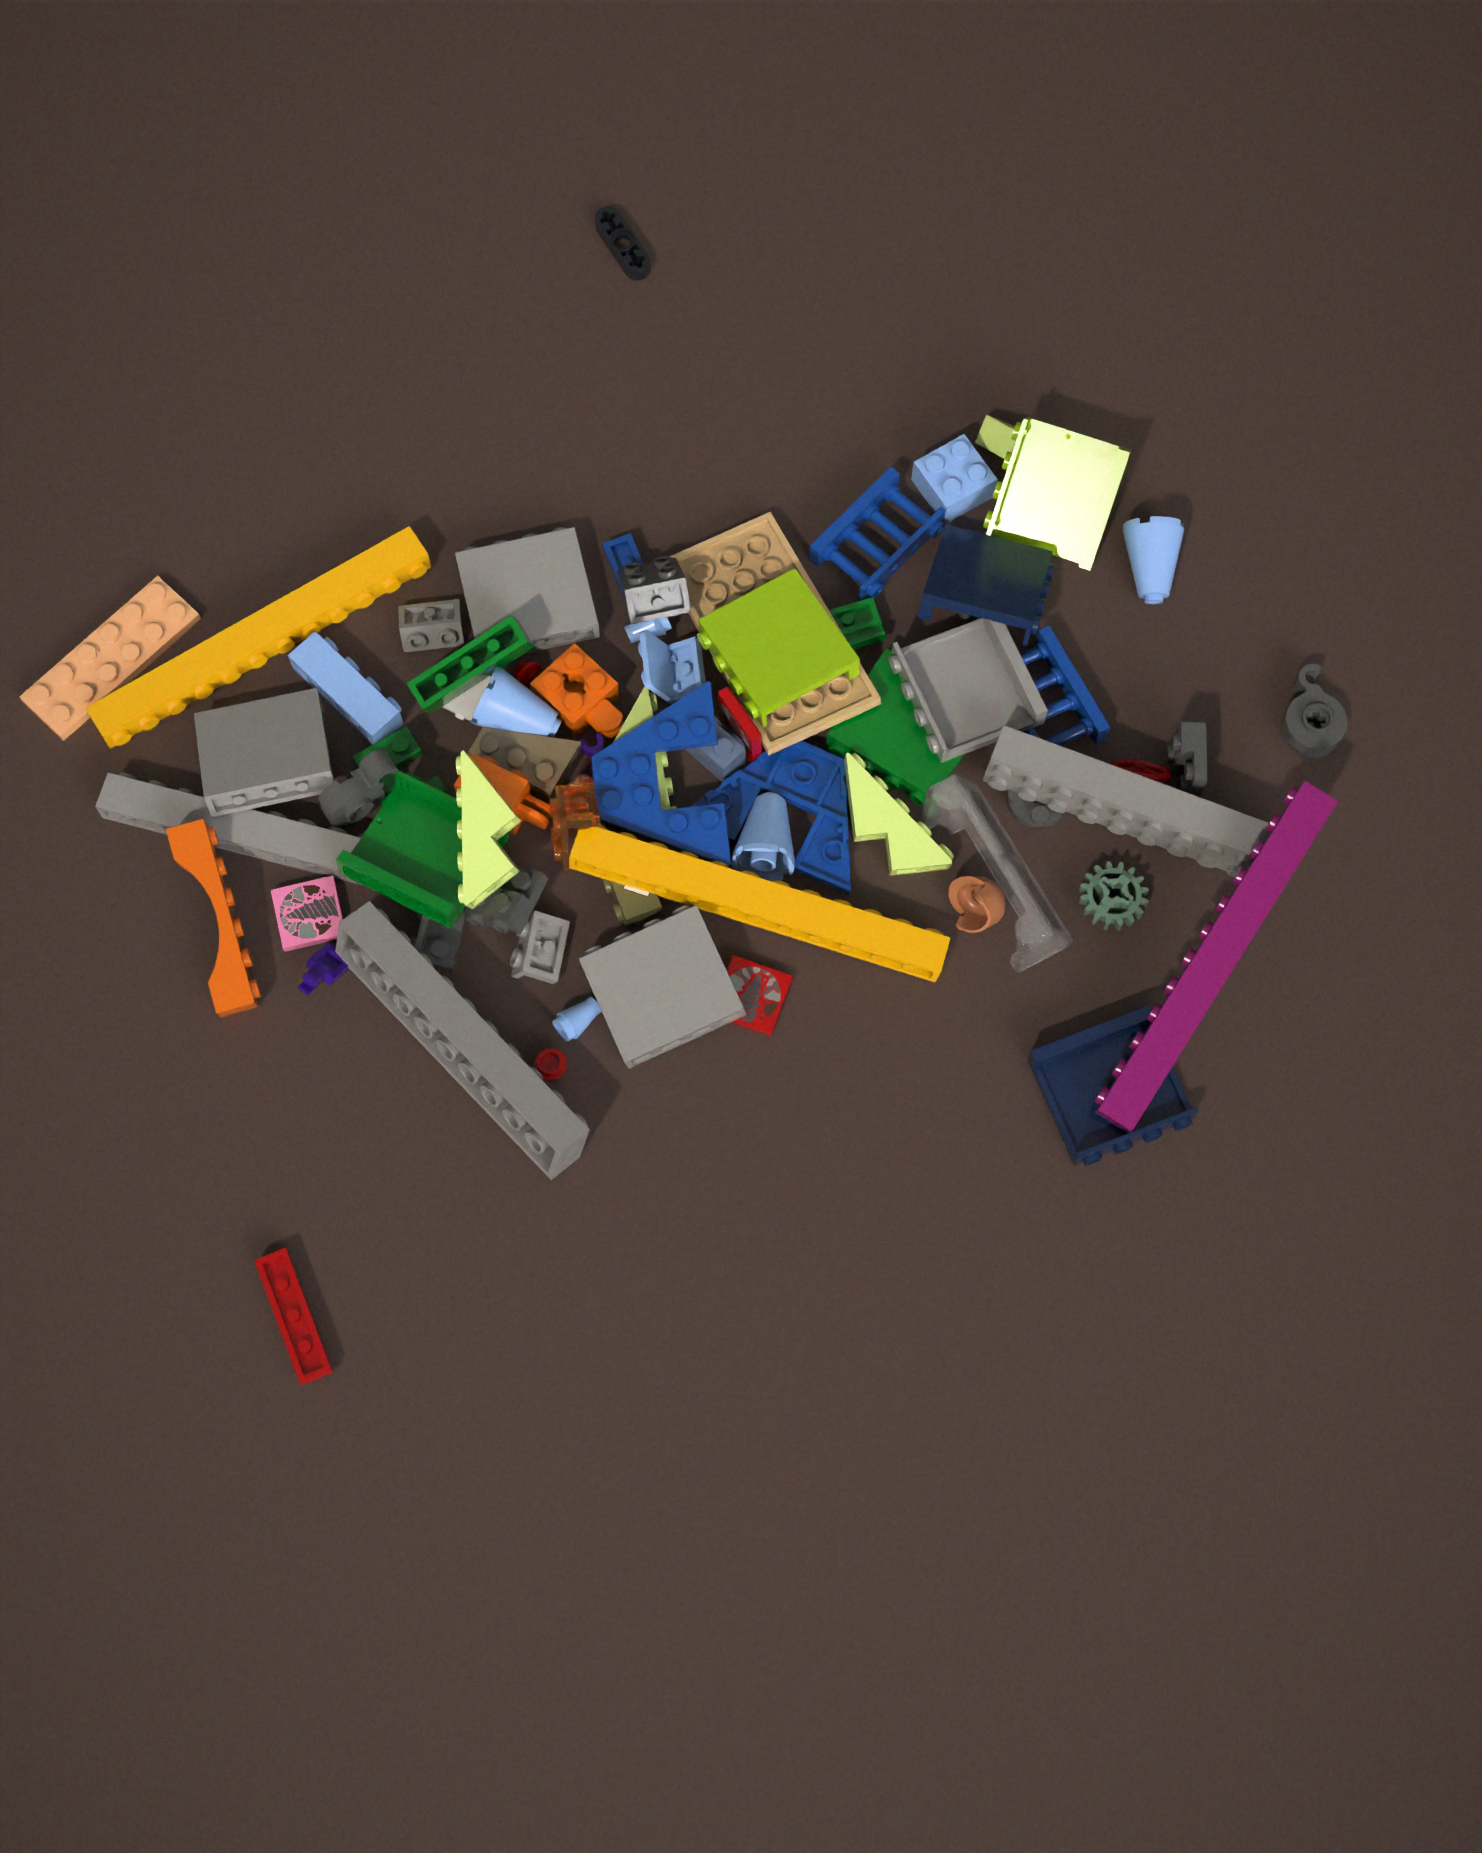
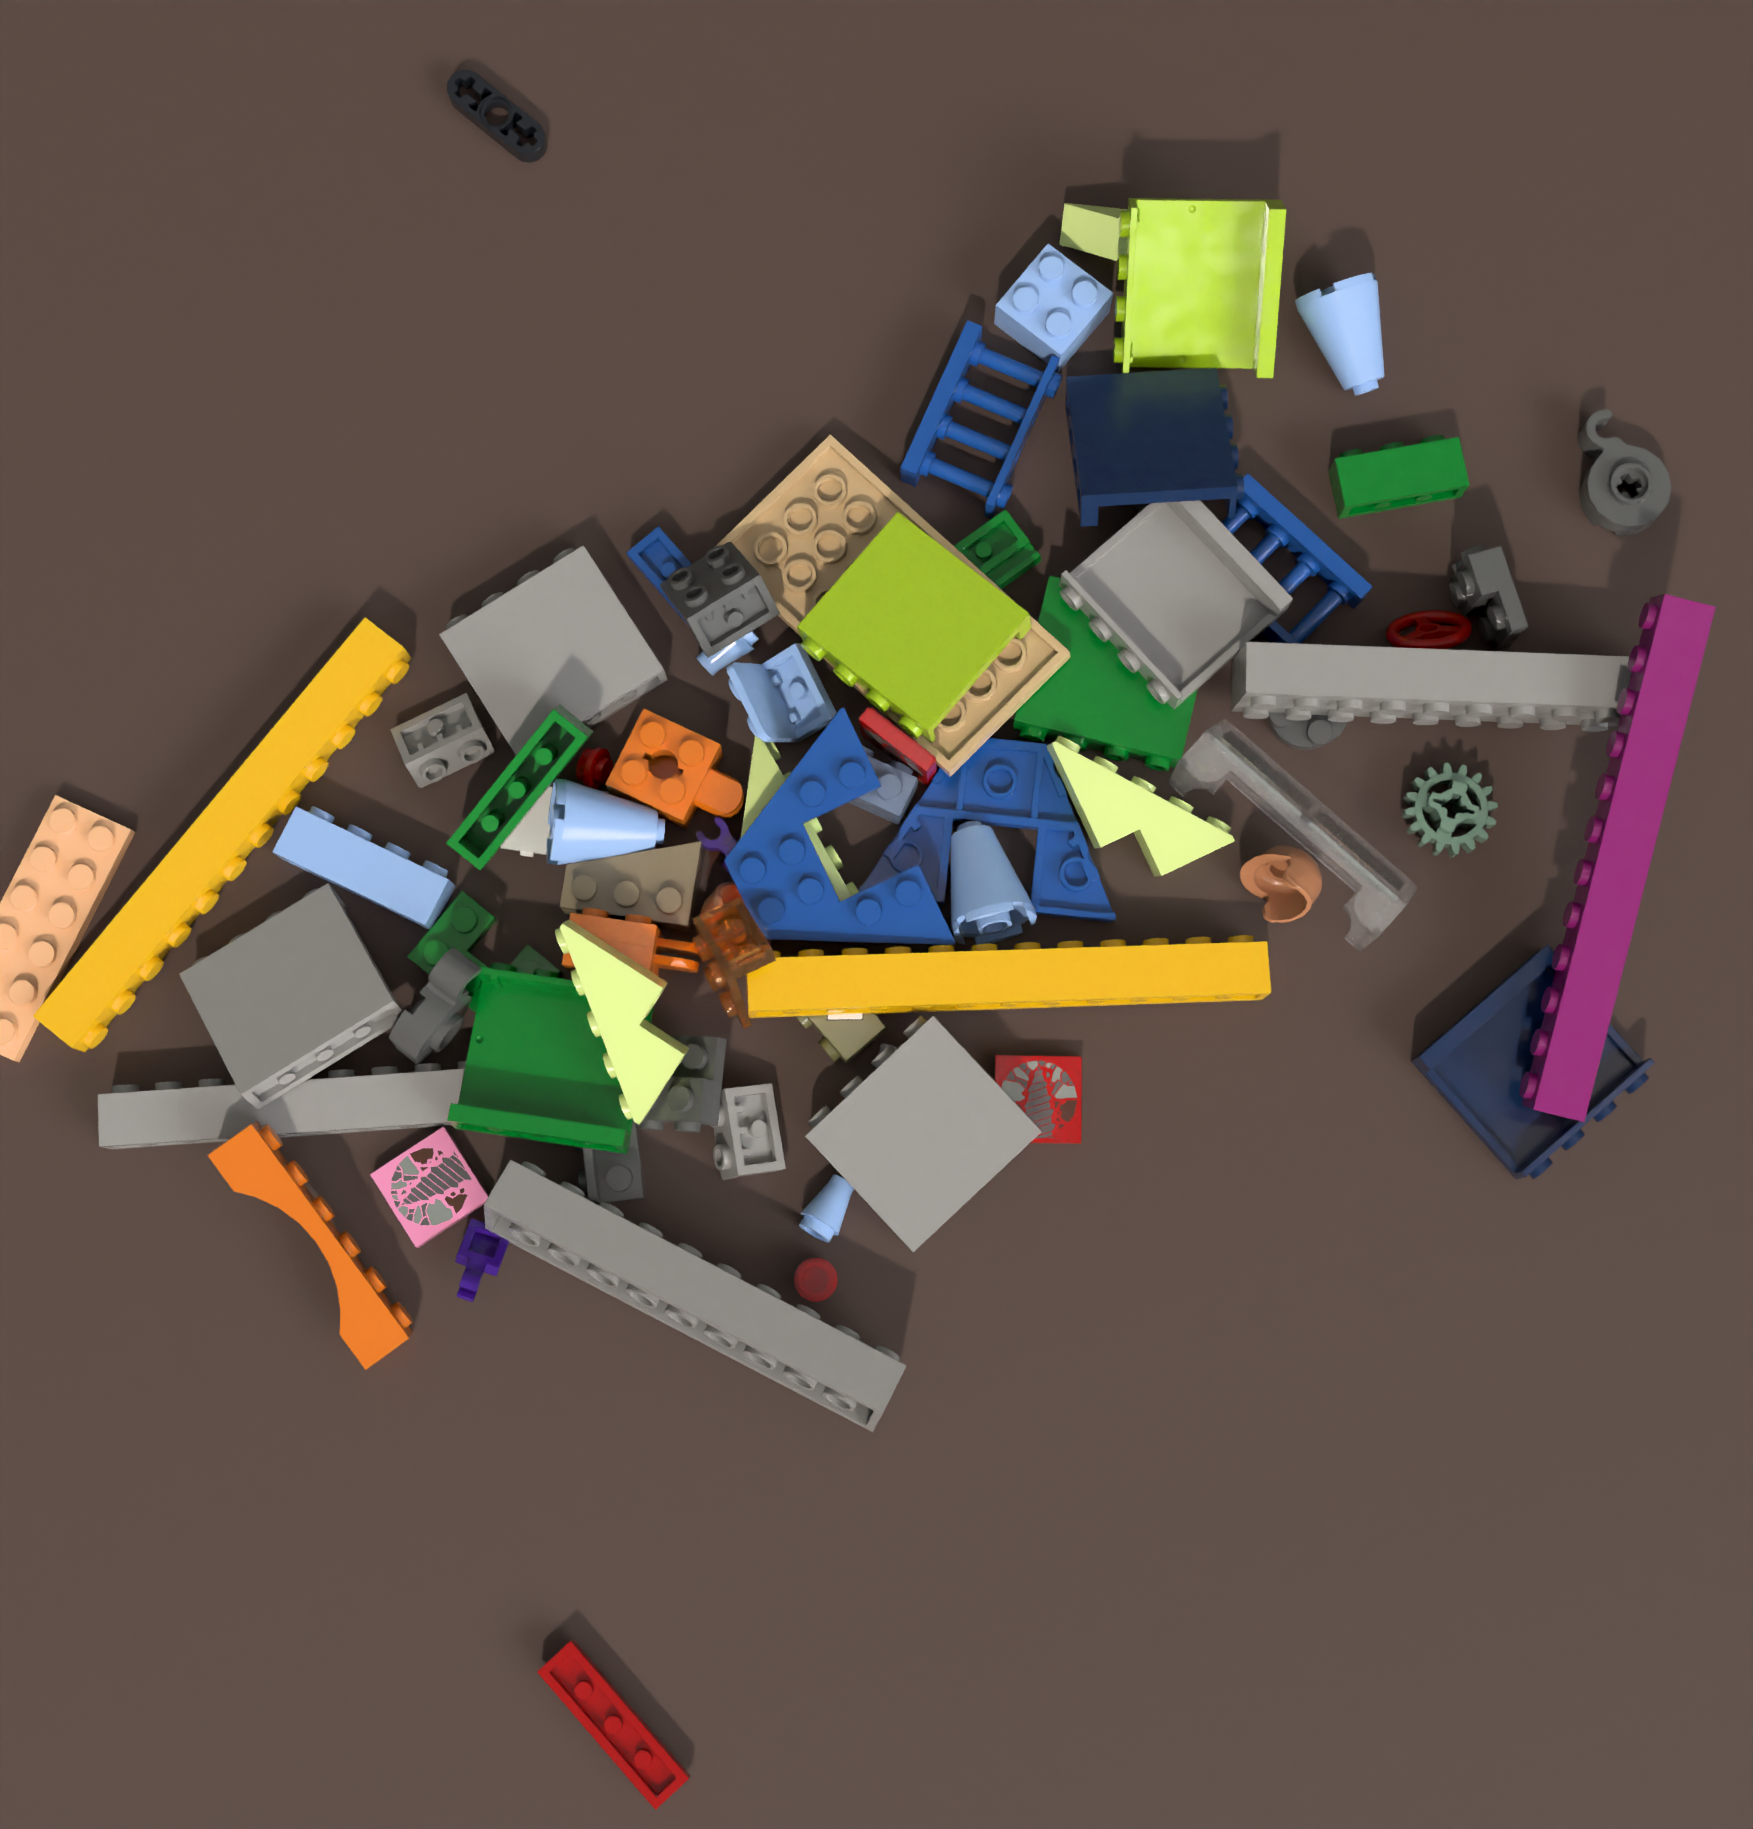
camera: 15 degrees left, 10 degrees up
(1155, 664) = (1398, 476): none -> green brick

